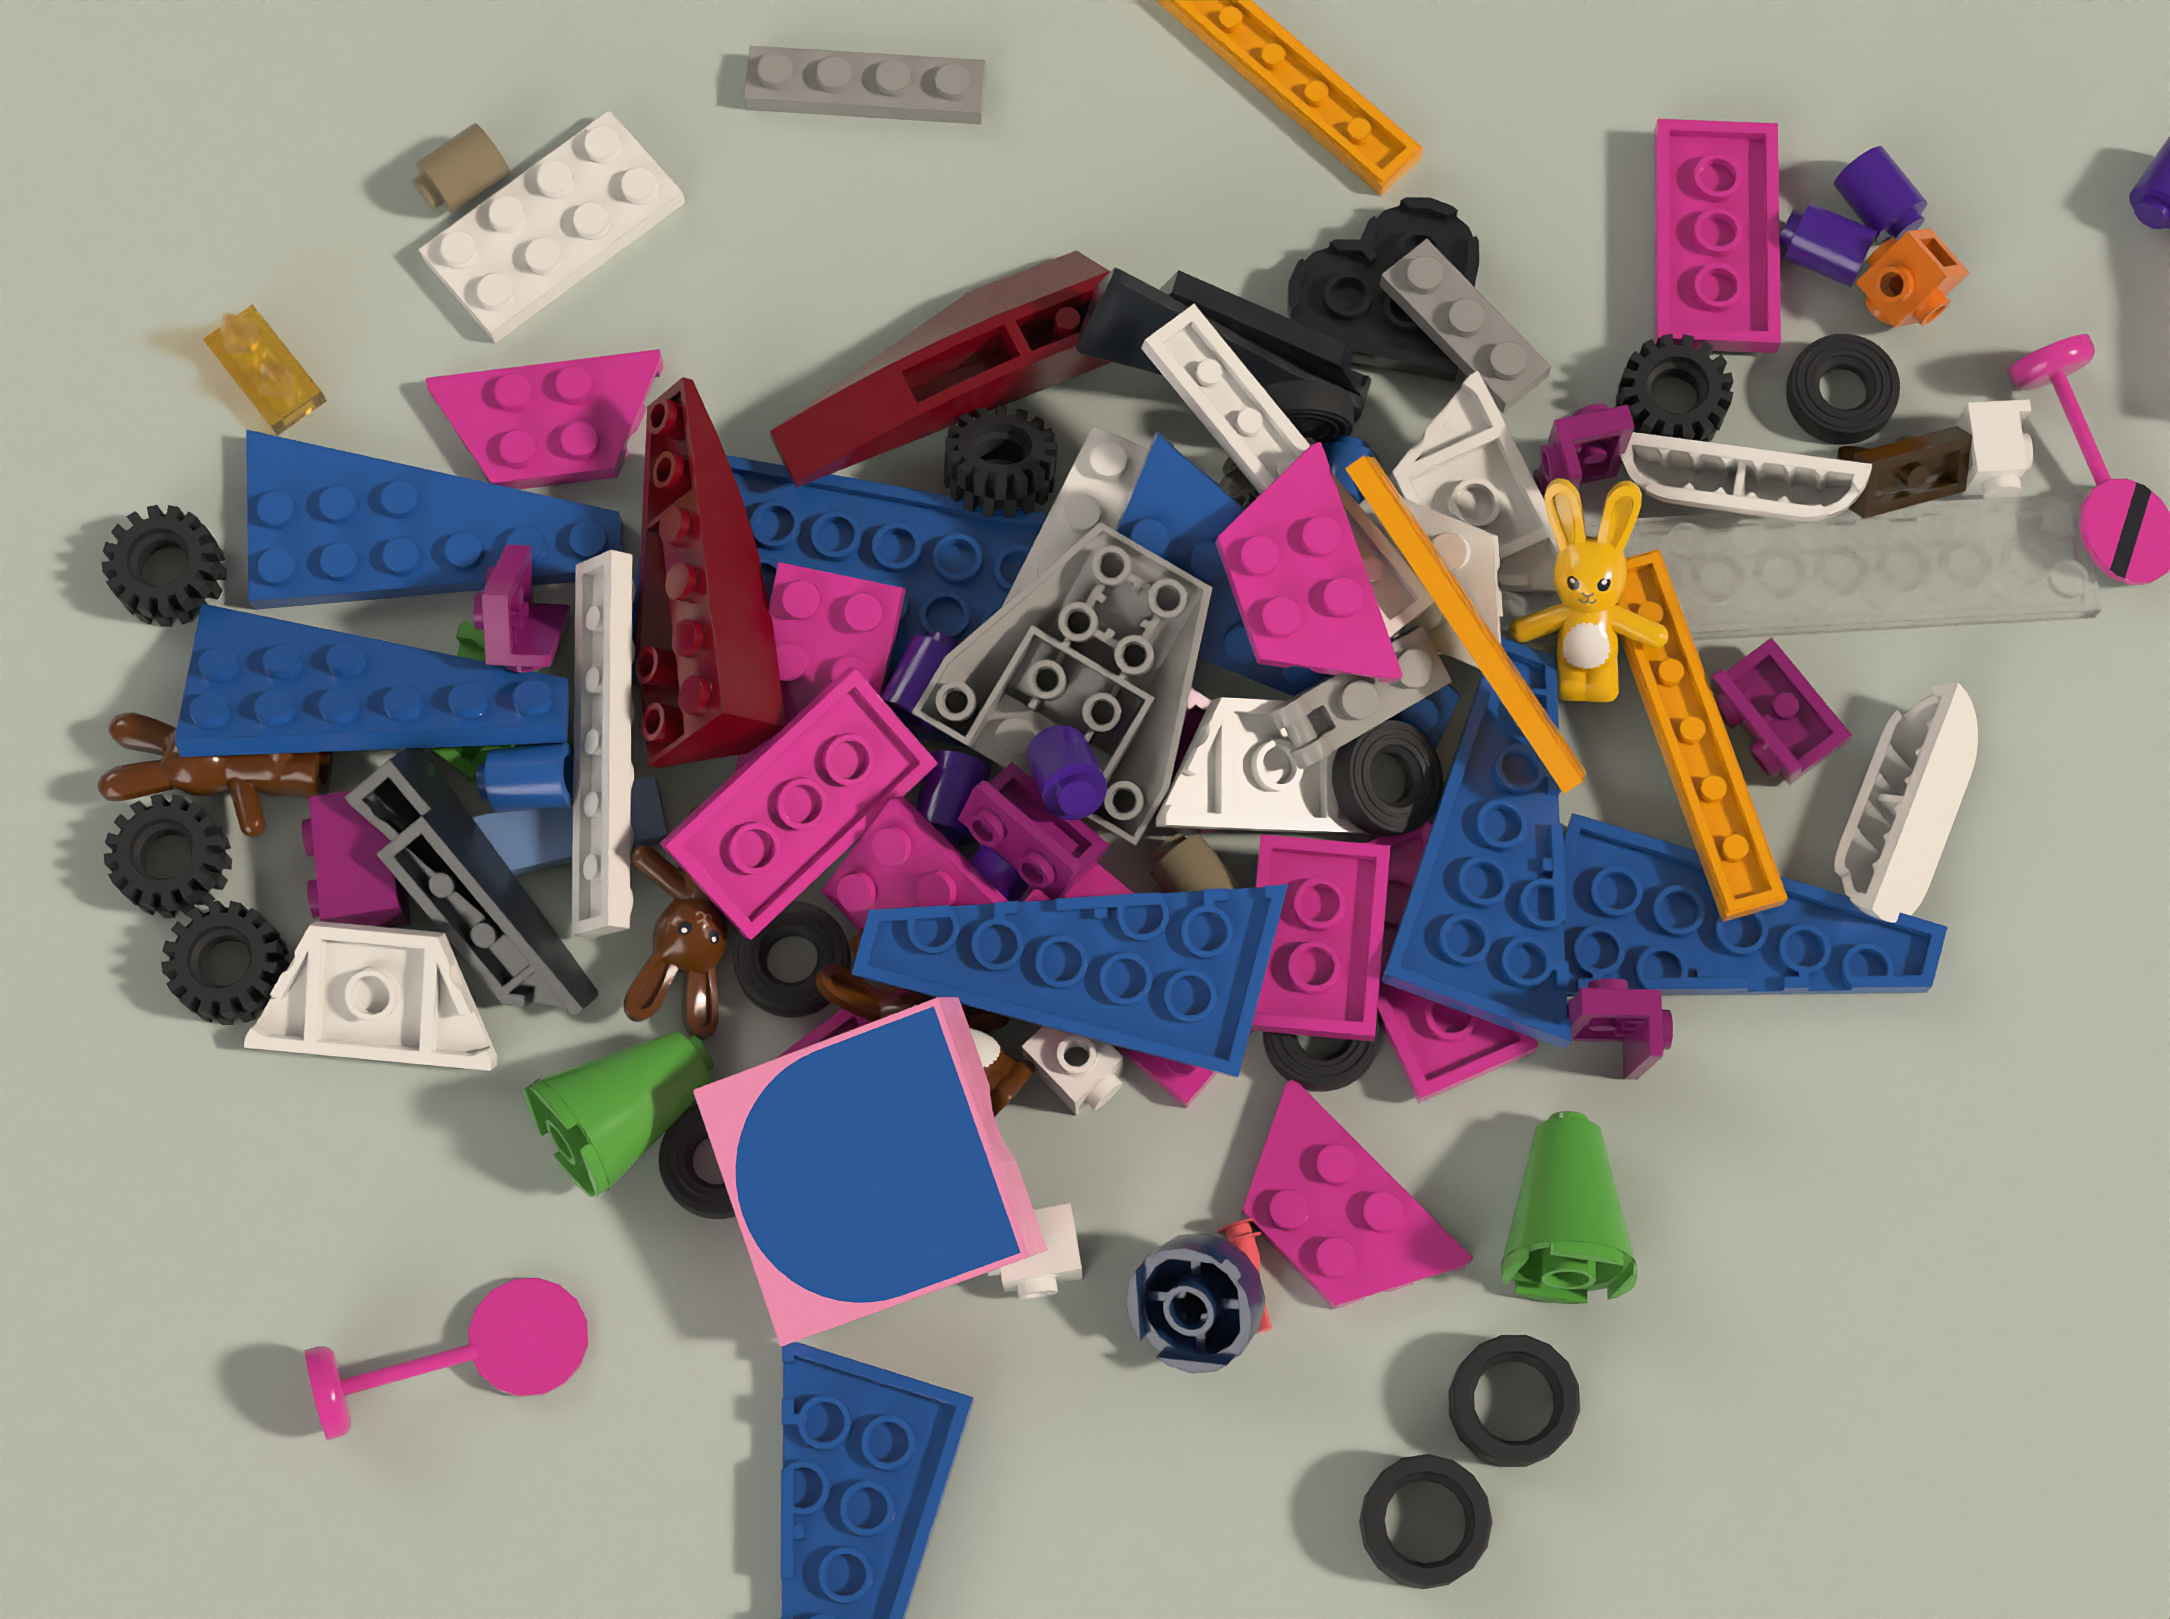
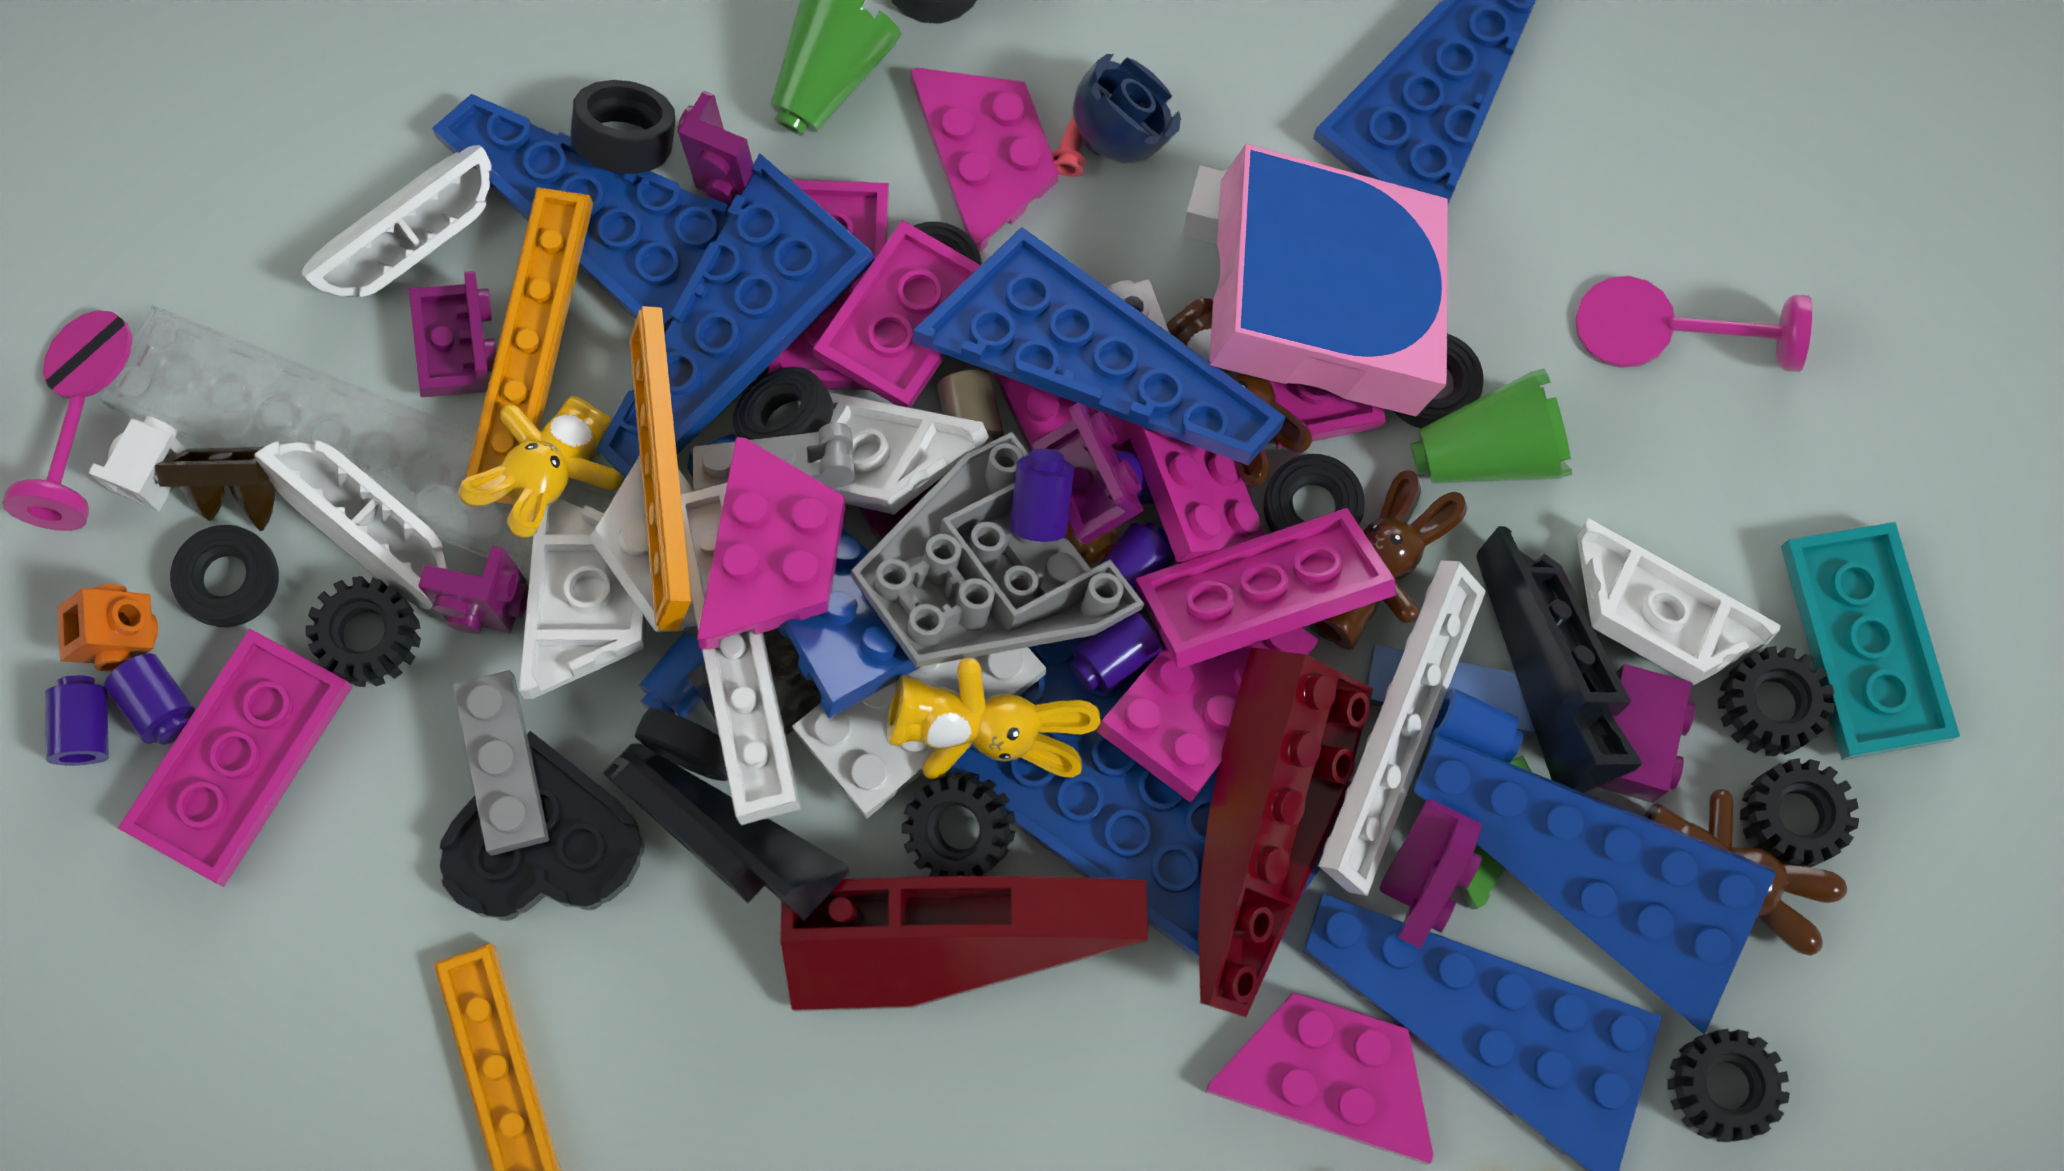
camera: 160 degrees left, 0 degrees up
(144, 1076) = (1870, 640): none -> teal plate
(1000, 537) = (999, 727): none -> yellow animal
(1765, 1060) = (618, 149): none -> black tyre

